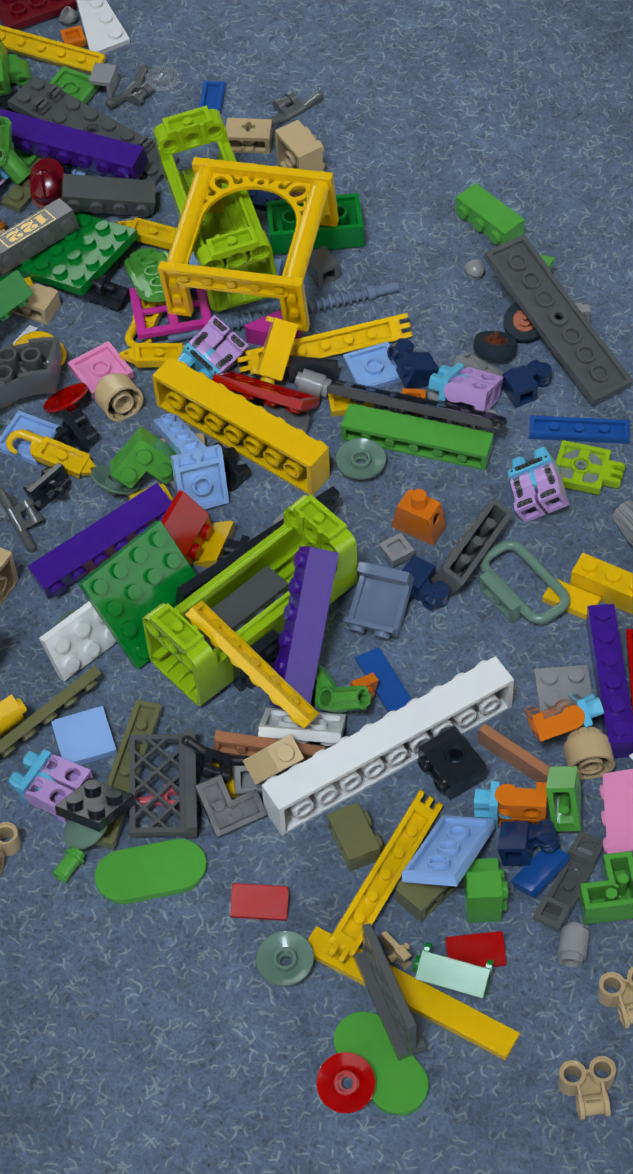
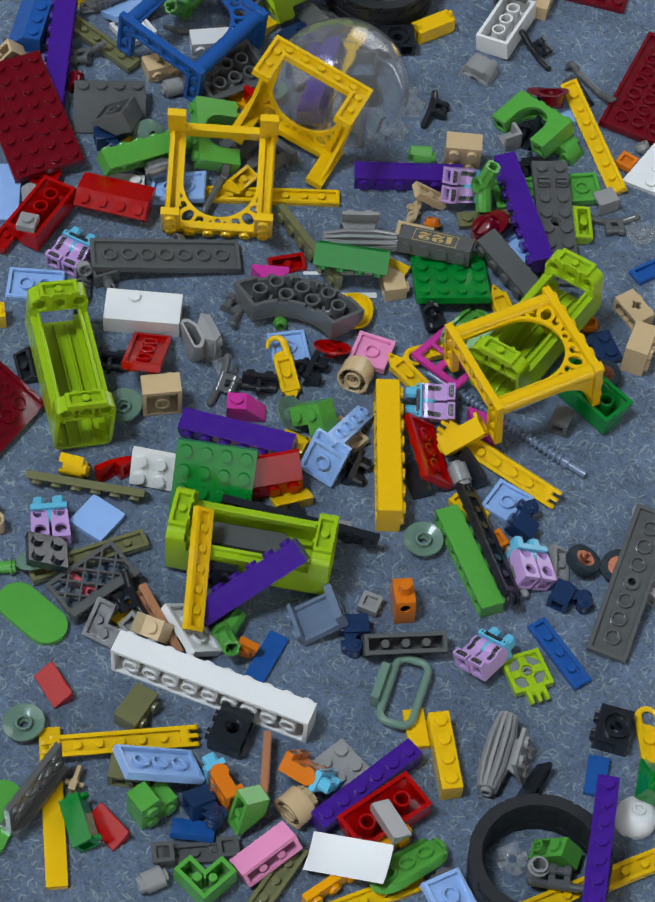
camera: 45 degrees right, 0 degrees up
(39, 676) = (110, 468): none -> red slope
(67, 519) = (245, 408): none -> dark pink slope
(115, 110) = (582, 224): none -> lime brick

